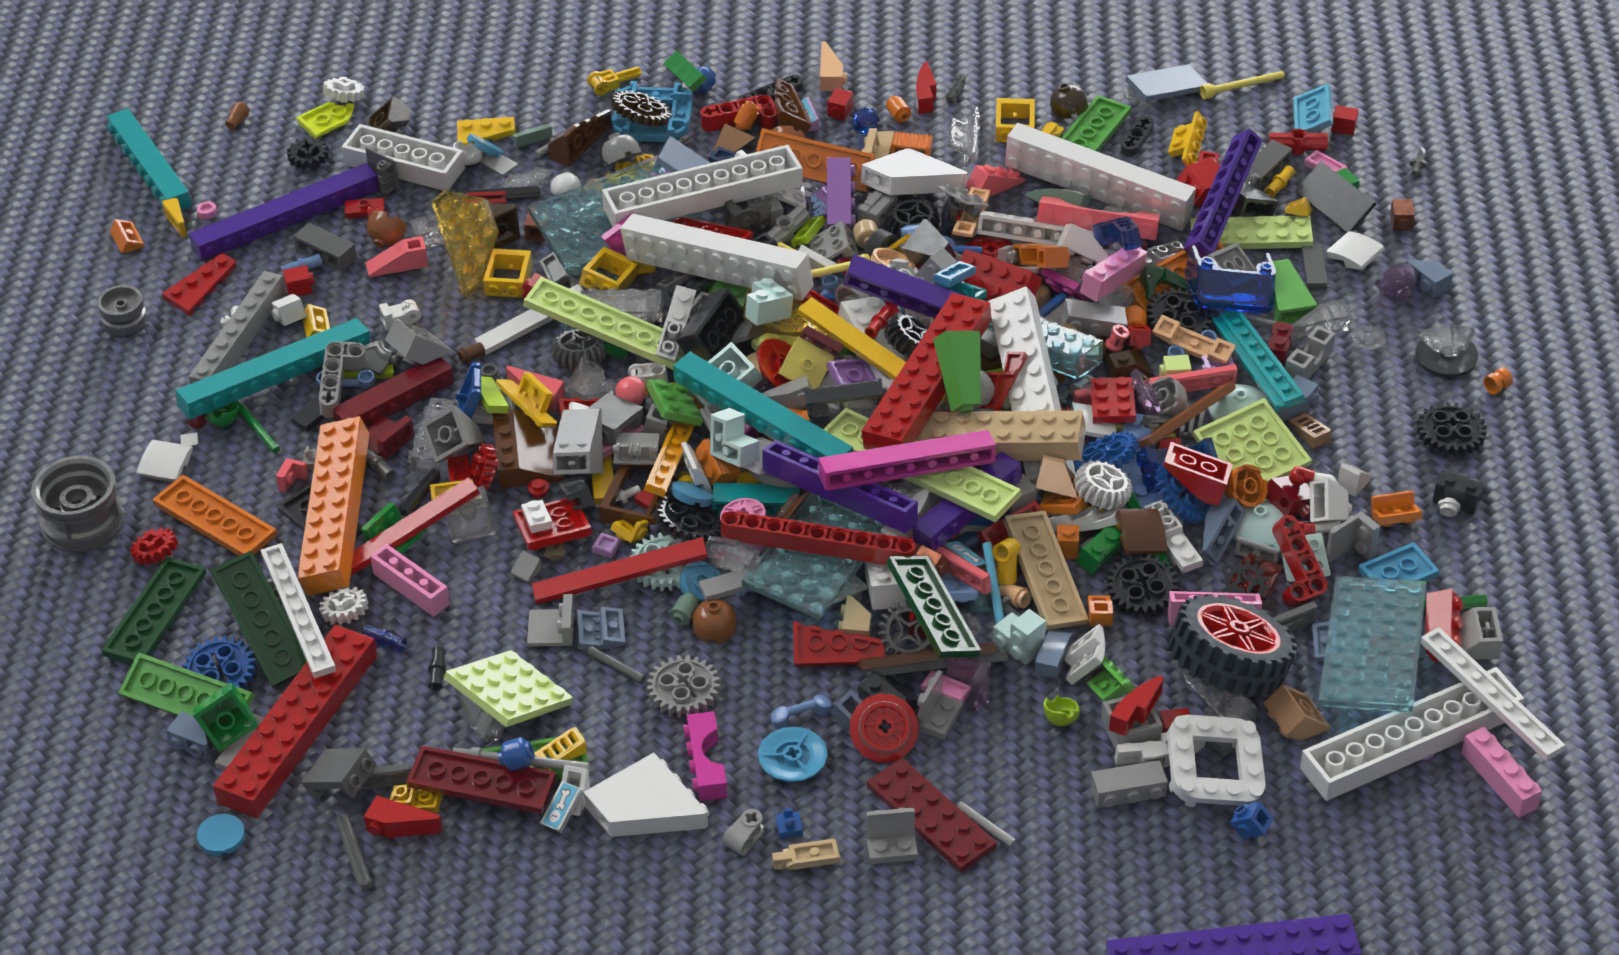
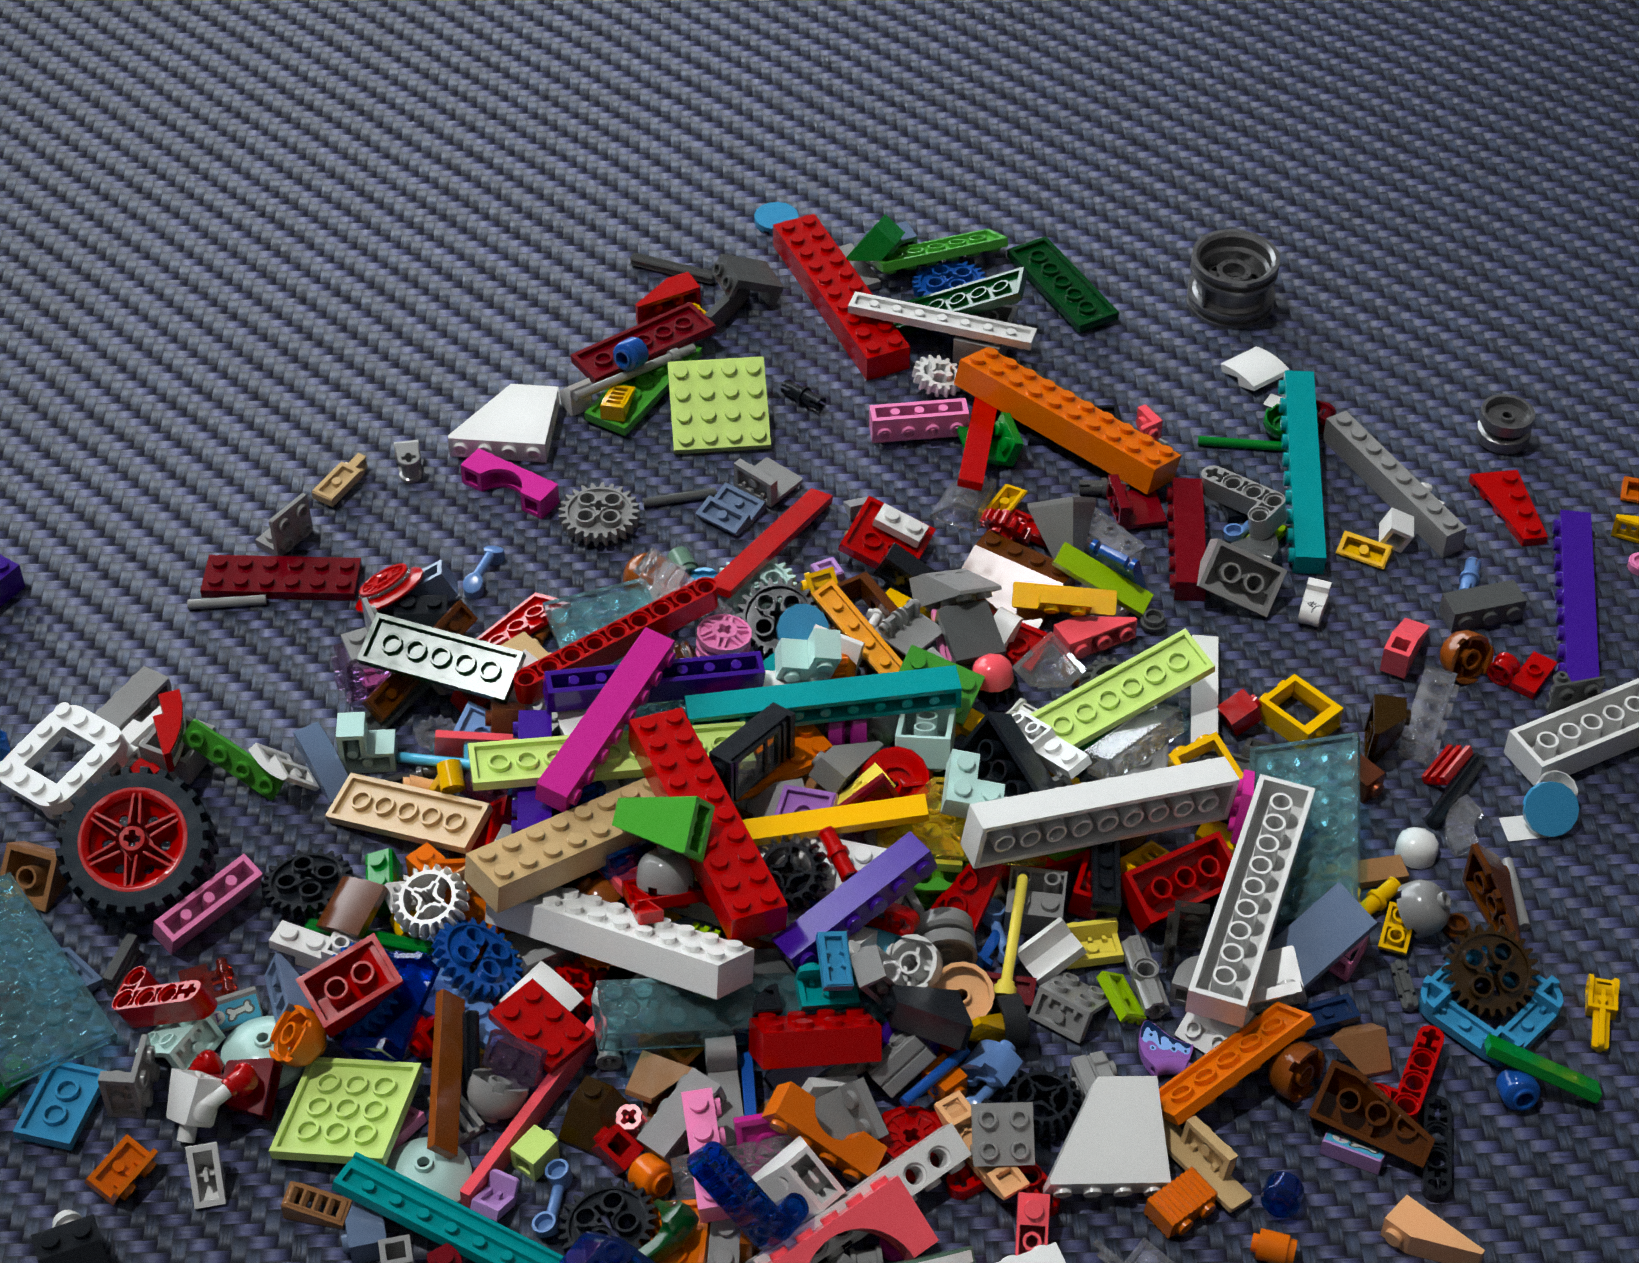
camera: 130 degrees right, 0 degrees up
(154, 546) = (1140, 310): red gear -> none
(214, 516) = (1142, 362): orange plate -> none
(298, 280) = (1441, 561): red brick -> none
(385, 638) = (864, 386): clear blue pin -> none
(419, 492) = (1029, 483): black axle -> none
(468, 235) = (1377, 684): clear yellow plate -> none
(471, 352) = (1200, 620): reddish brown pin -> none
(485, 128) = (1598, 841): yellow wing -> none
(532, 135) = (1551, 876): sand green slope -> none
(538, 488) = (951, 563): red plate -> none
(561, 806) = (563, 375): slope -> none
(746, 116) = (1398, 1070): orange brick -> none
(789, 824) = (385, 493): blue tile -> none
(801, 743) = (444, 531): dark azure piece -> none
(839, 191) = (1143, 1047): medium lavender brick -> none
(840, 104) = (1340, 1193): red brick -> none
(863, 231) = (1058, 1039): tan head -> none
(1061, 711) = (258, 716): lime hair -> none
(1100, 611) = (316, 824): orange brick -> none
(1192, 342) = (548, 1195): light nougat slope -> none
(1242, 573) = (200, 949): black gear -> none

